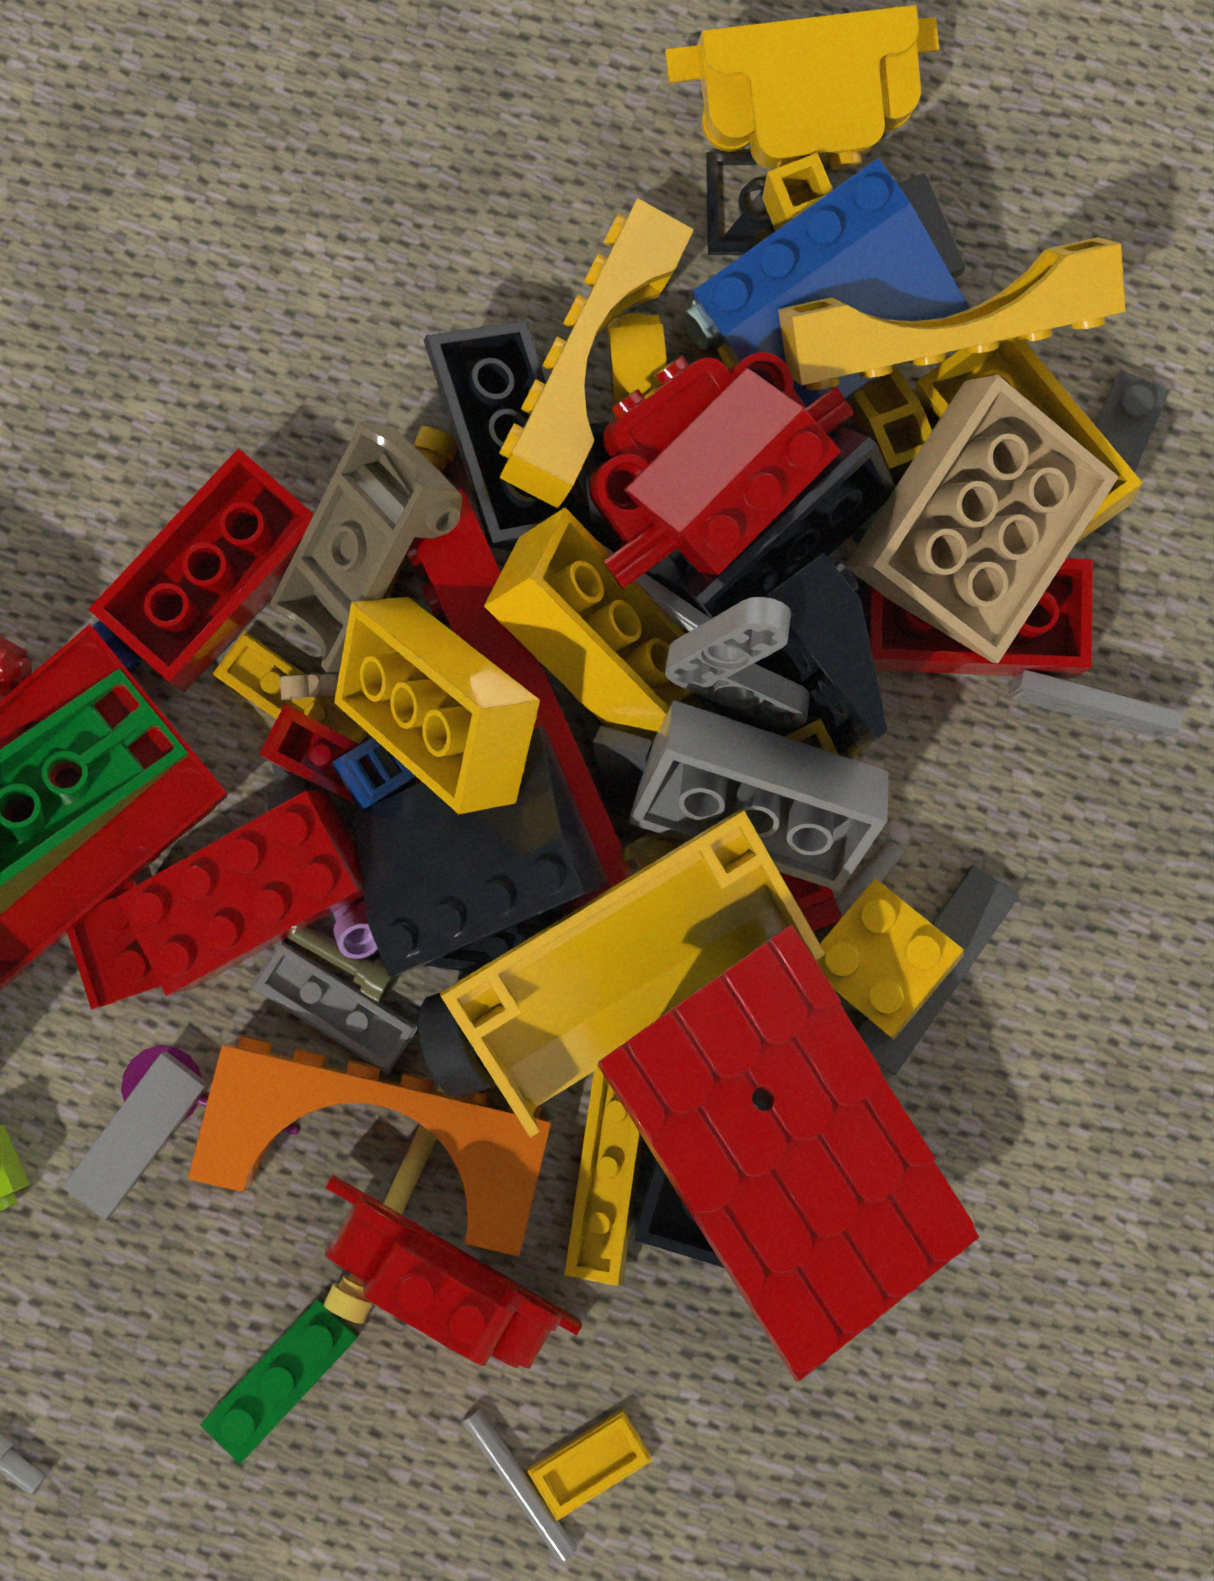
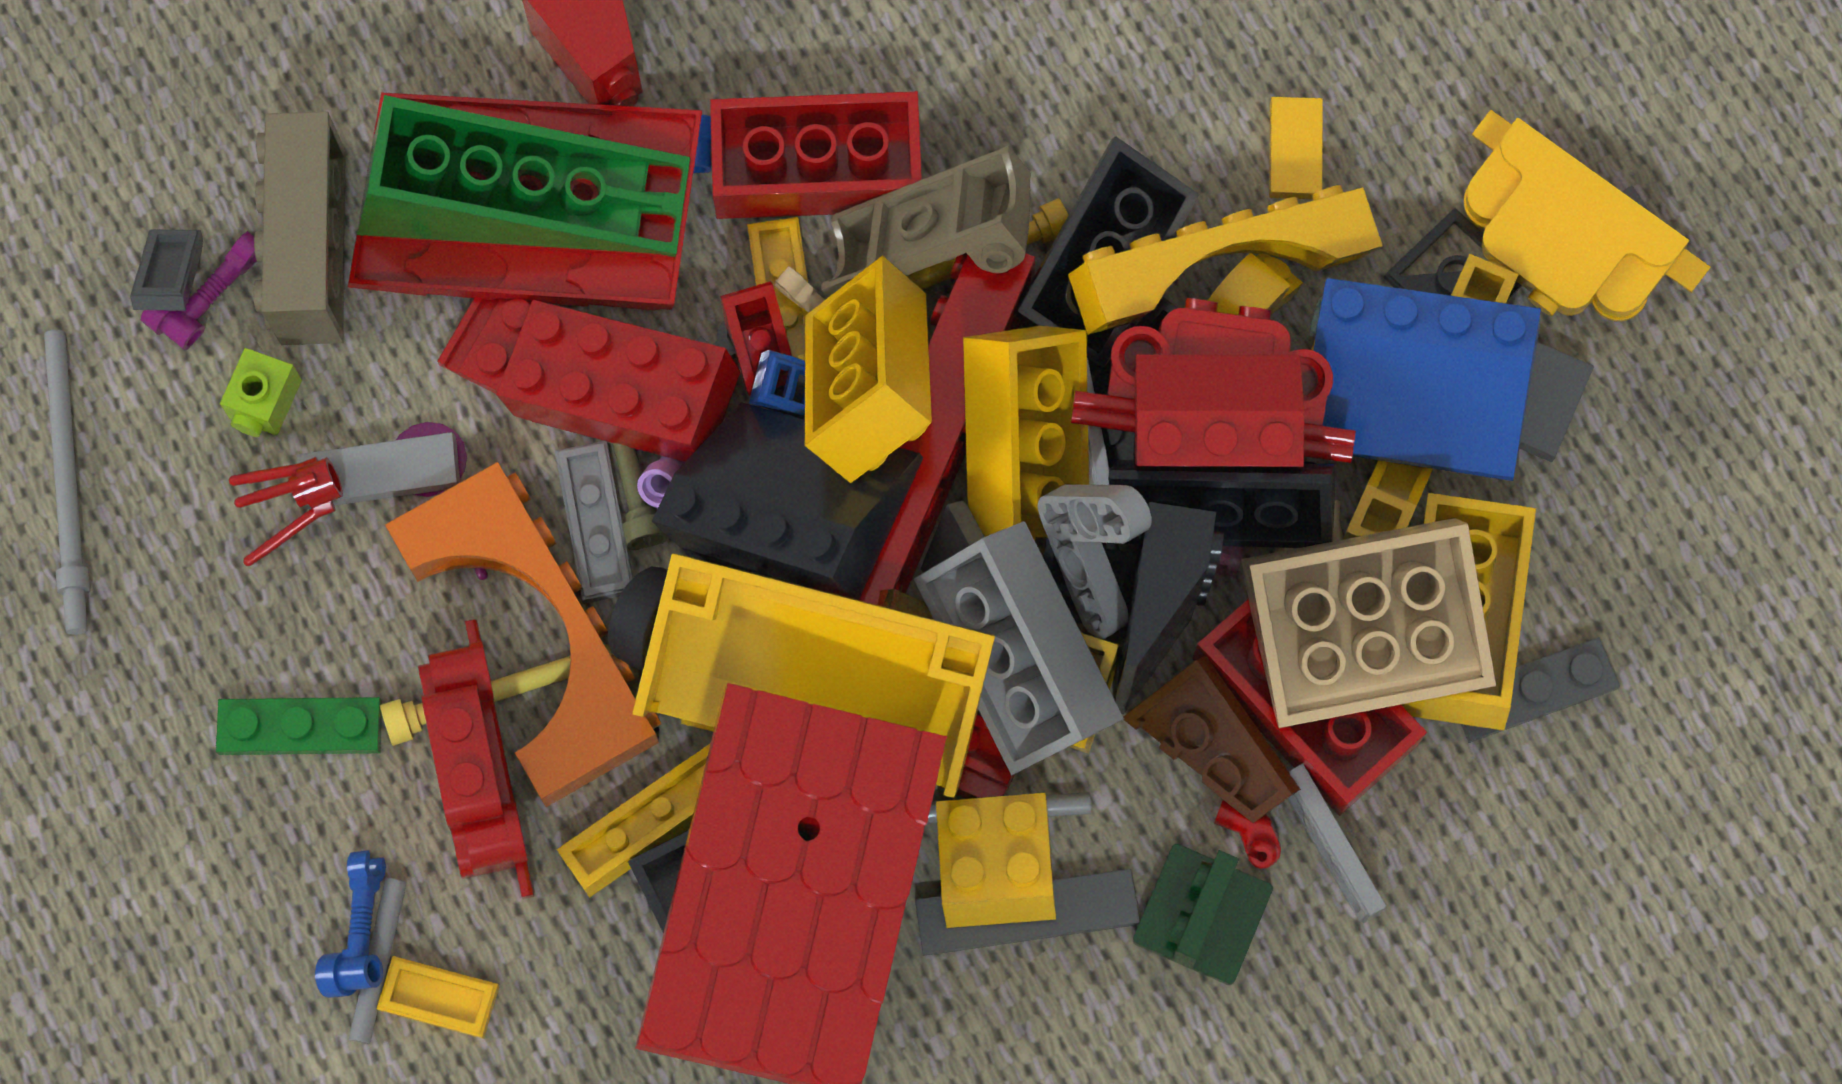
camera: 50 degrees right, 10 degrees down
(99, 1200) = (311, 484): none -> red plant
(511, 1515) = (354, 968): none -> blue brick
(549, 218) = (1295, 147): none -> yellow tile
(952, 711) = (1213, 734): none -> reddish brown wing
(1030, 749) = (1258, 837): none -> red arm
(1054, 845) = (1203, 913): none -> dark green bracket
(1061, 288) = (1587, 521): yellow arch -> none

